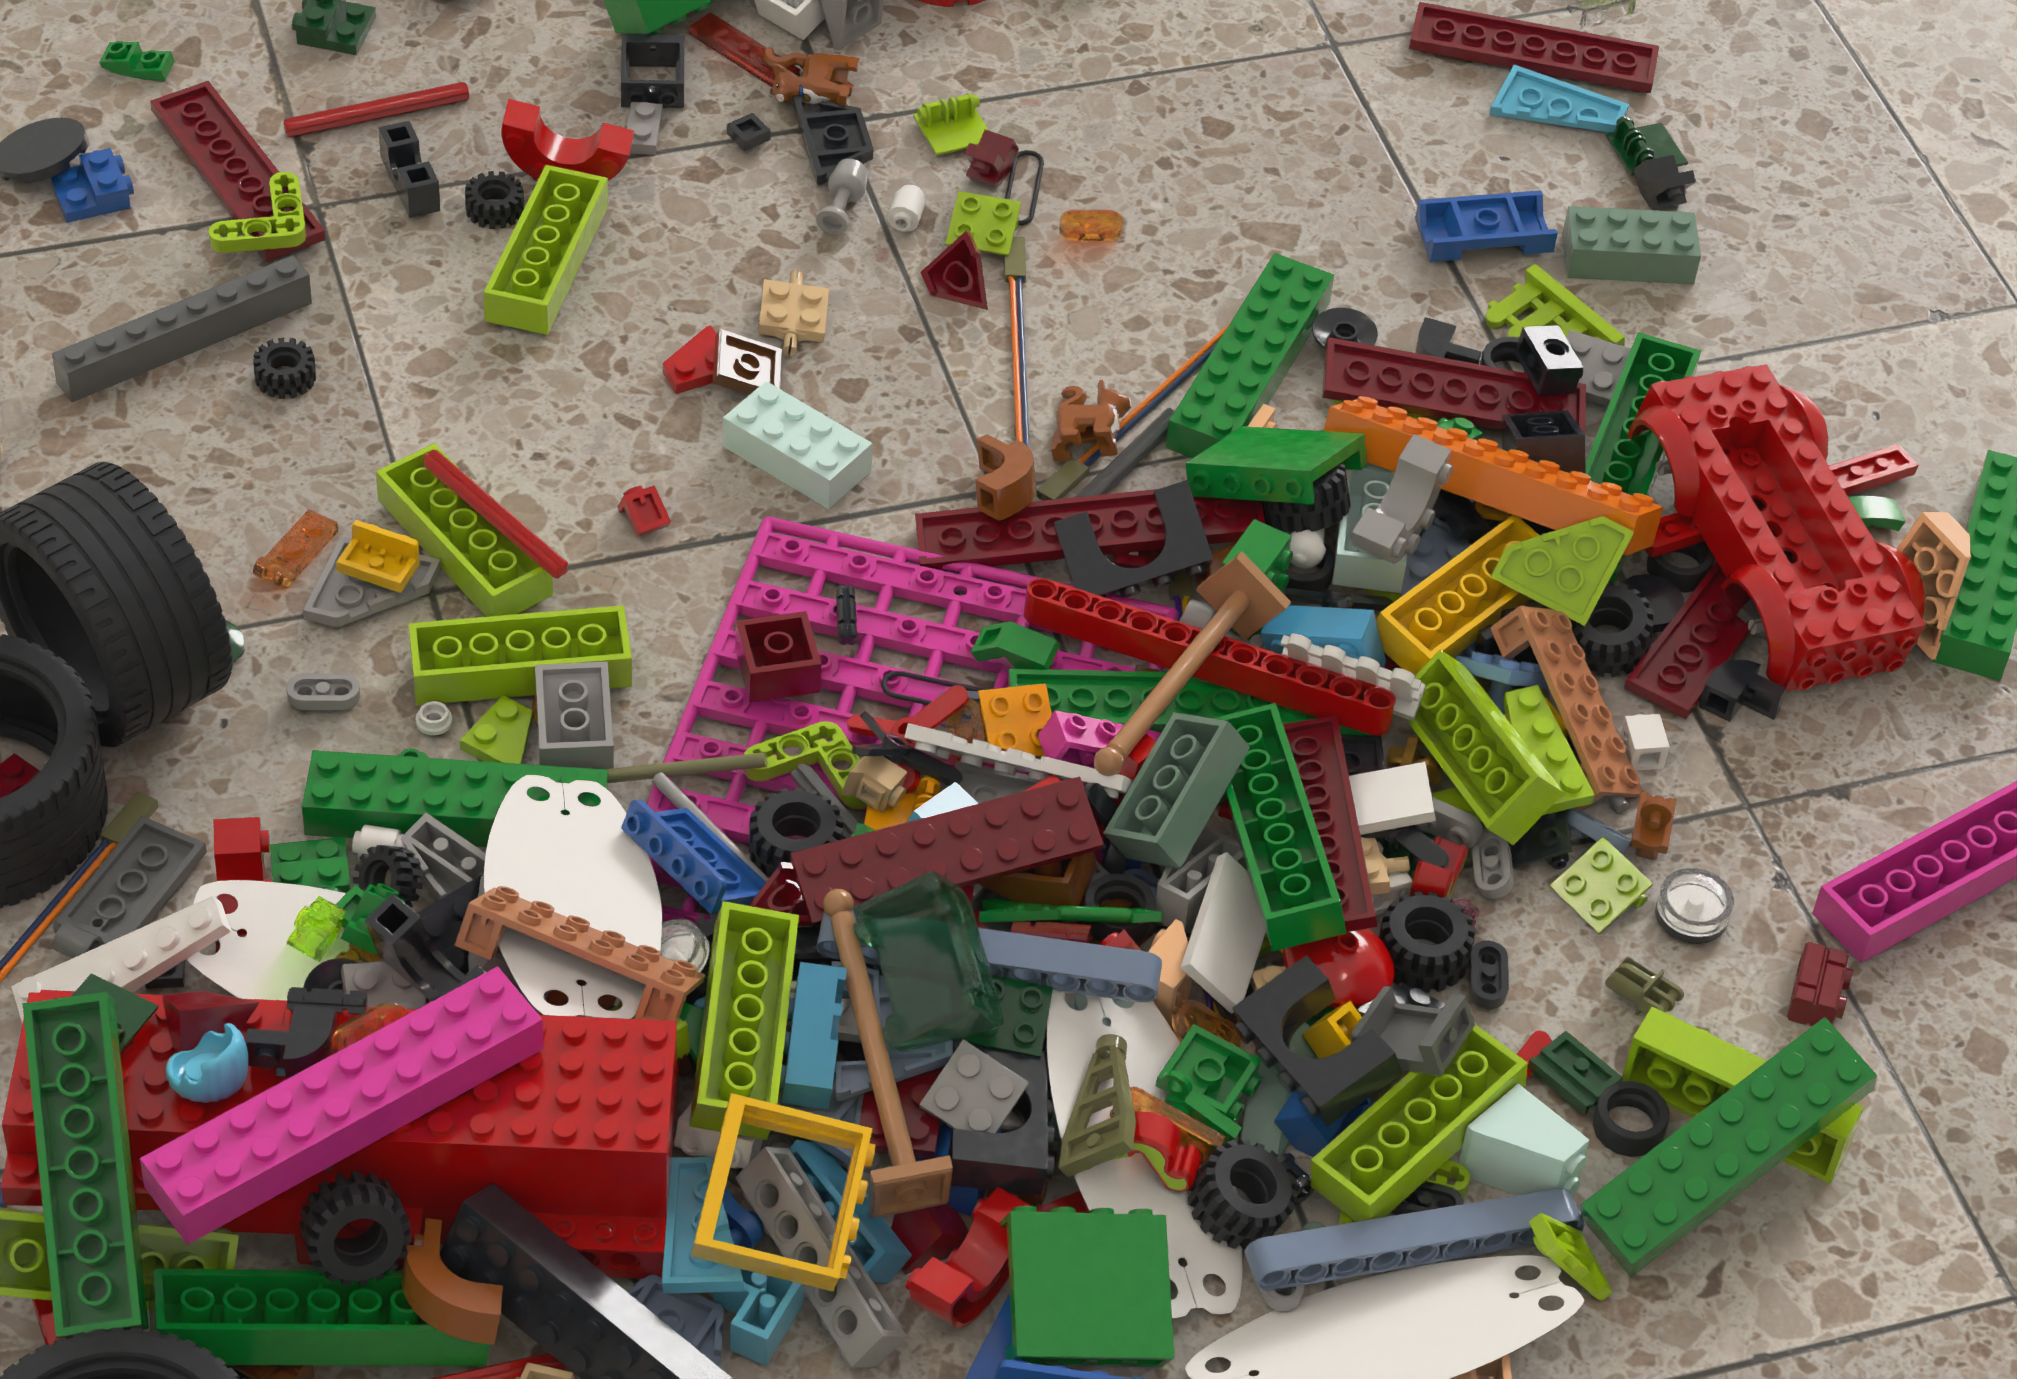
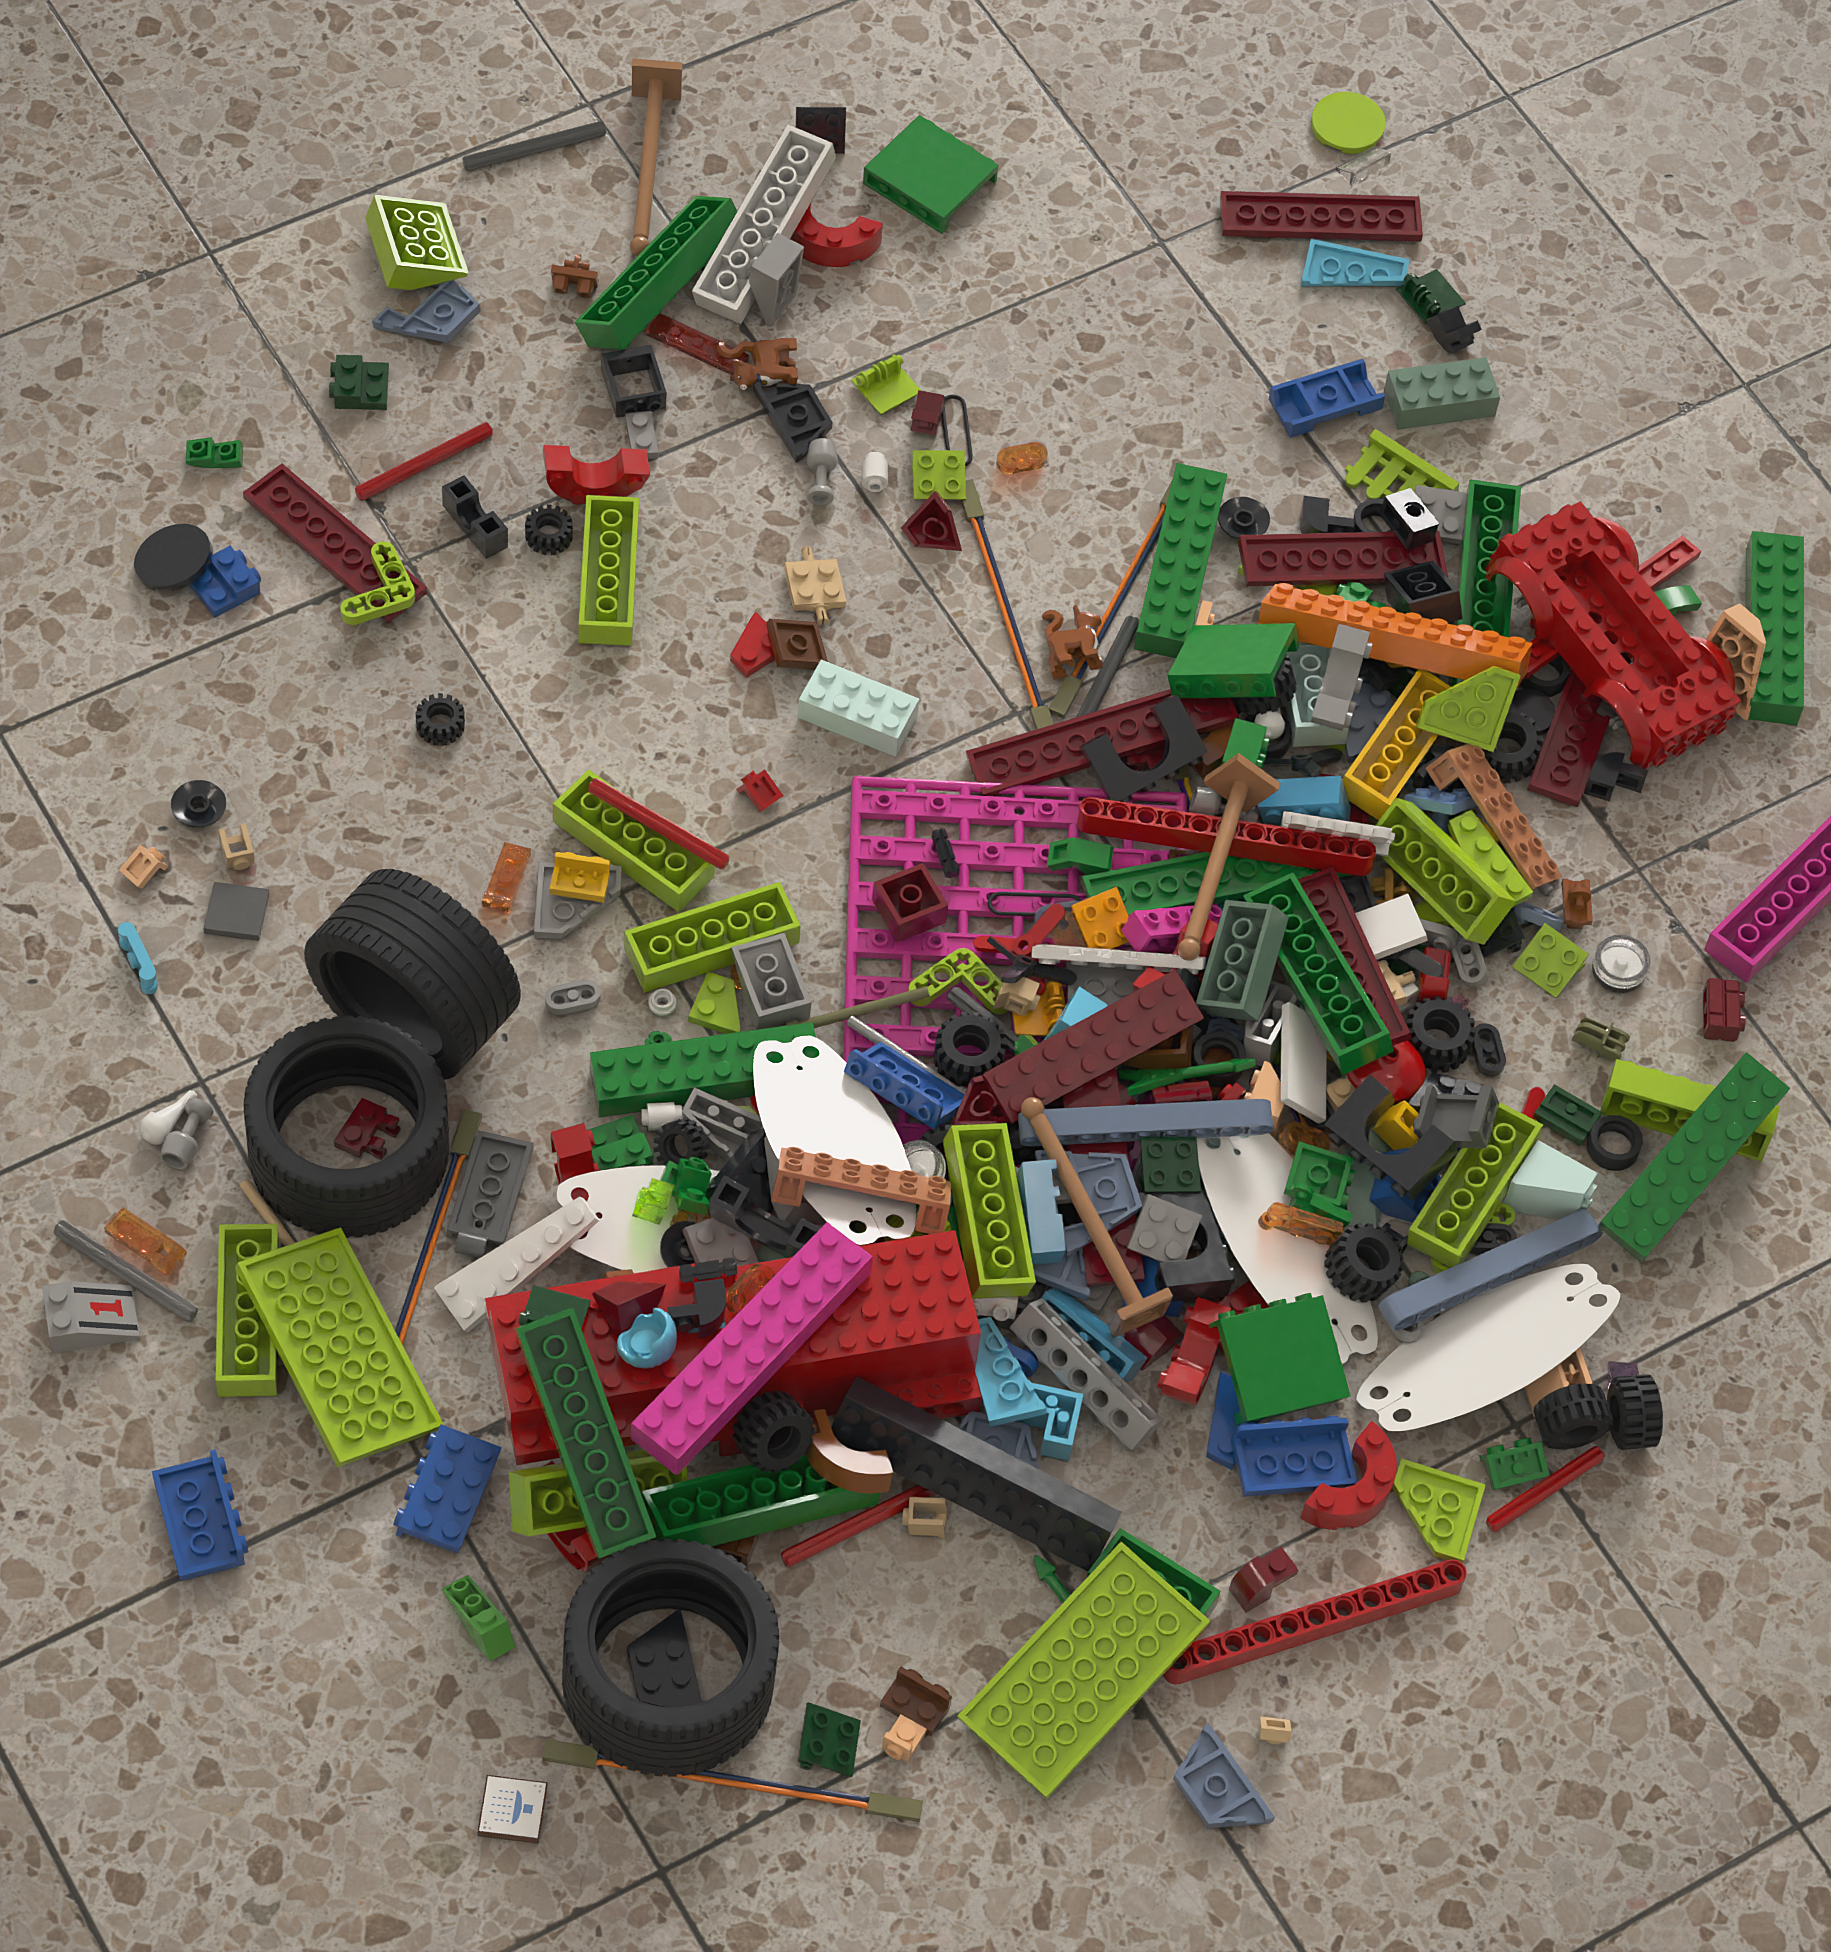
camera: 15 degrees left, 10 degrees up
(181, 328) = (349, 701): dark grey brick -> none
(748, 131) = (727, 423): black plate -> none
(802, 1125) = (1012, 1336): yellow window -> none
(930, 963) = (1112, 1143): clear green windscreen -> none
(1009, 479) = (1035, 717): dark orange arch -> none
(1114, 1137) = (1267, 1249): olive plate -> none
(1159, 1144) = (1301, 1240): red animal -> none
(1570, 1252) = (1597, 1255): lime wing -> none
(1645, 741) = (1554, 833): white brick -> none

